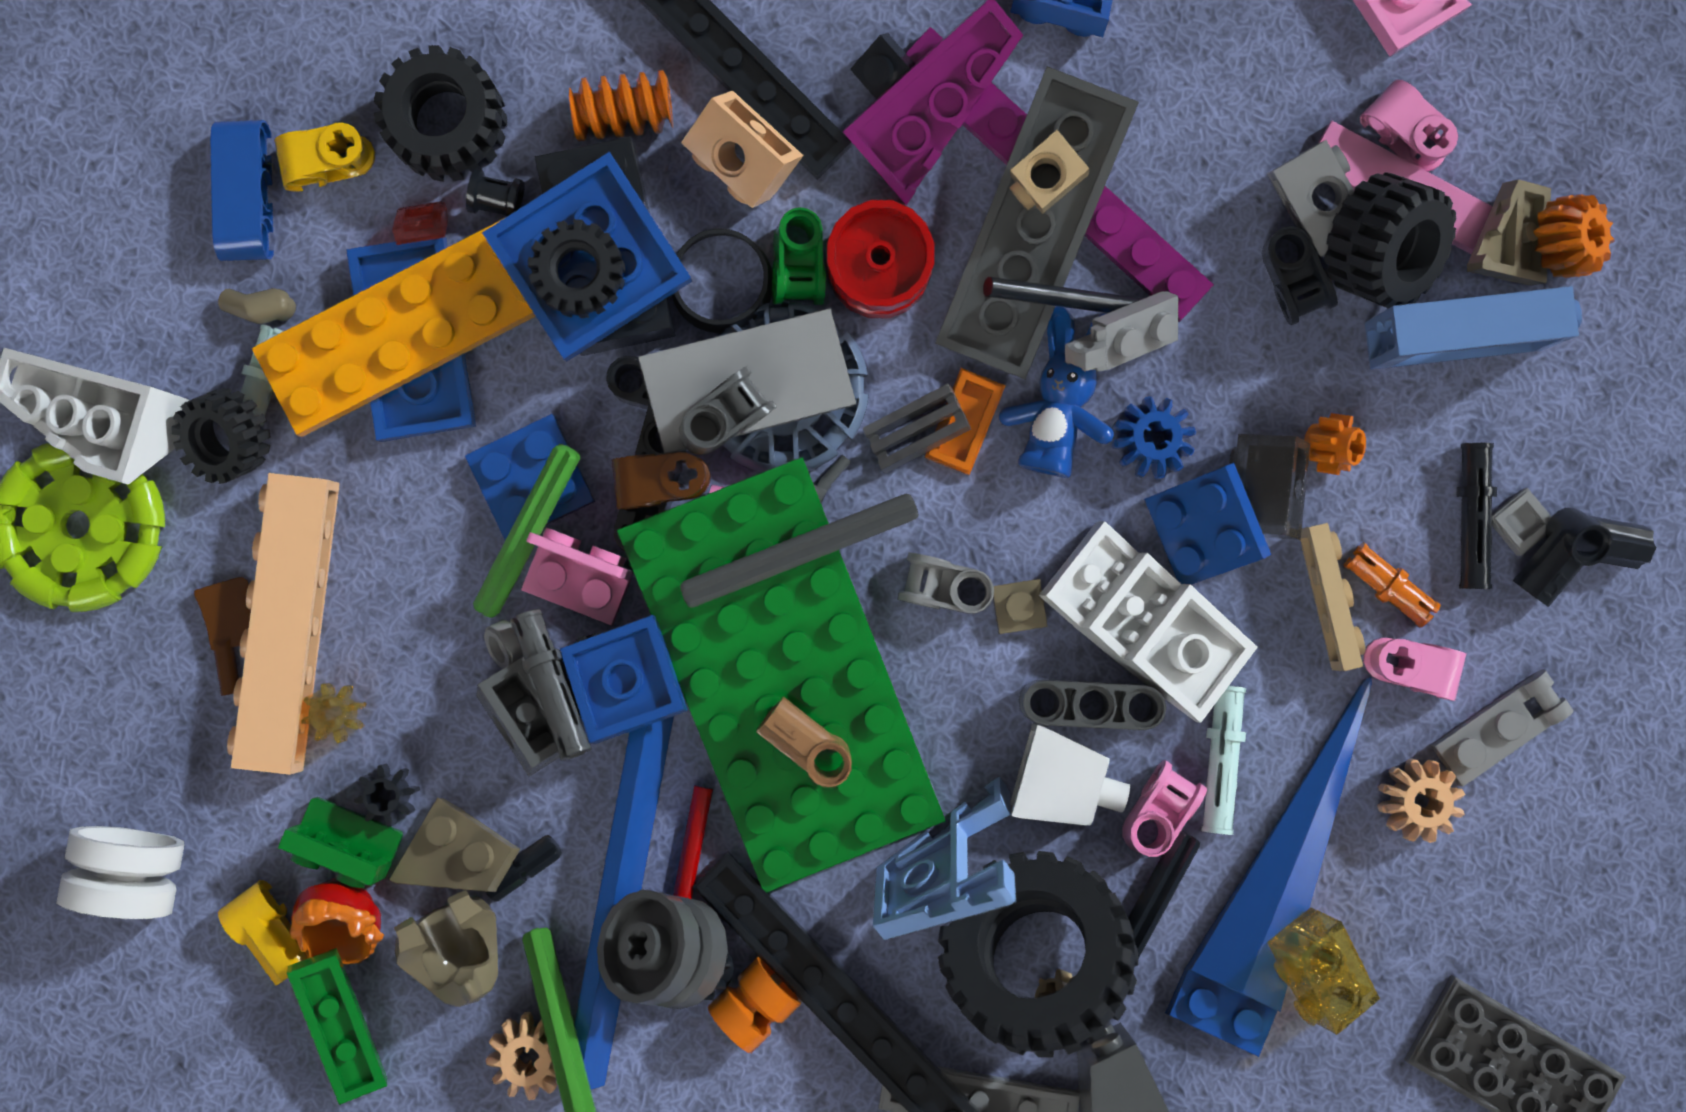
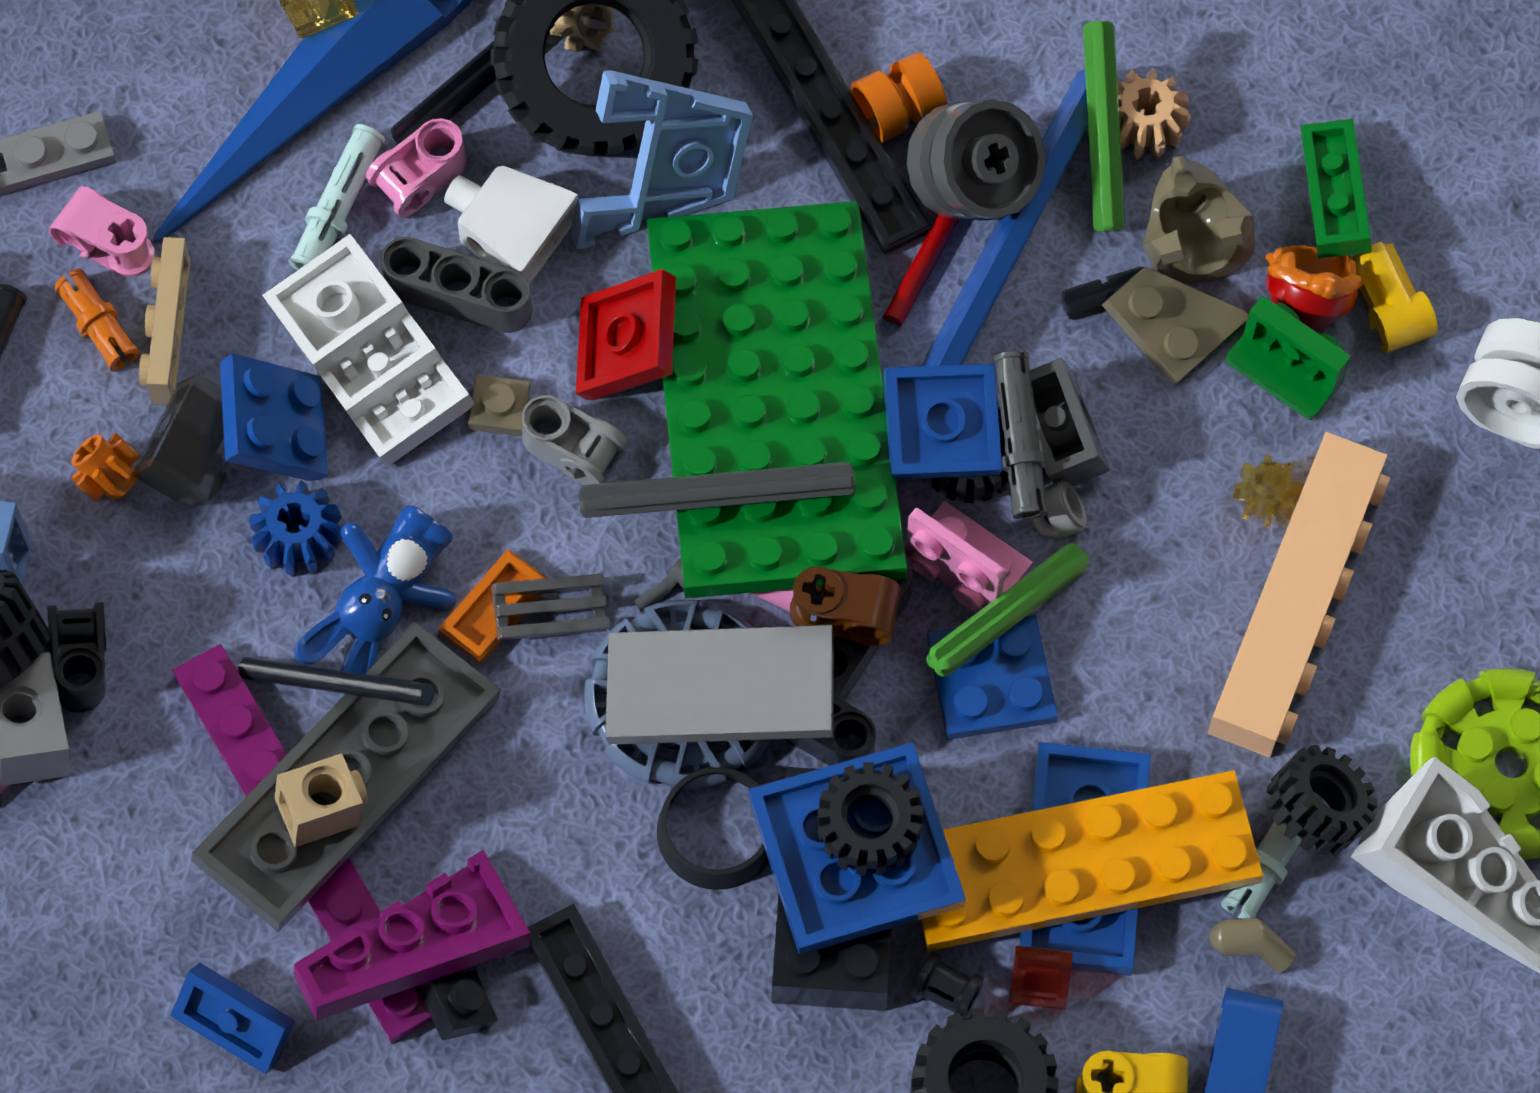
camera: 160 degrees left, 20 degrees down
(225, 619) = (1362, 618): reddish brown piece -> none
(389, 782) = (1226, 409): black gear -> none
(621, 106) = (771, 1042): orange piece -> none
(731, 407) = (751, 639): dark grey piece -> none
(766, 152) = (649, 950): light nougat brick -> none
(798, 268) = (629, 808): green piece -> none
(802, 740) = (768, 308): medium nougat piece -> none
(902, 241) = (541, 817): red wheel -> none
(927, 694) = (626, 335): none -> red plate
(1126, 333) = (291, 629): light grey hinge -> none
(1413, 818) = (153, 123): light nougat gear -> none

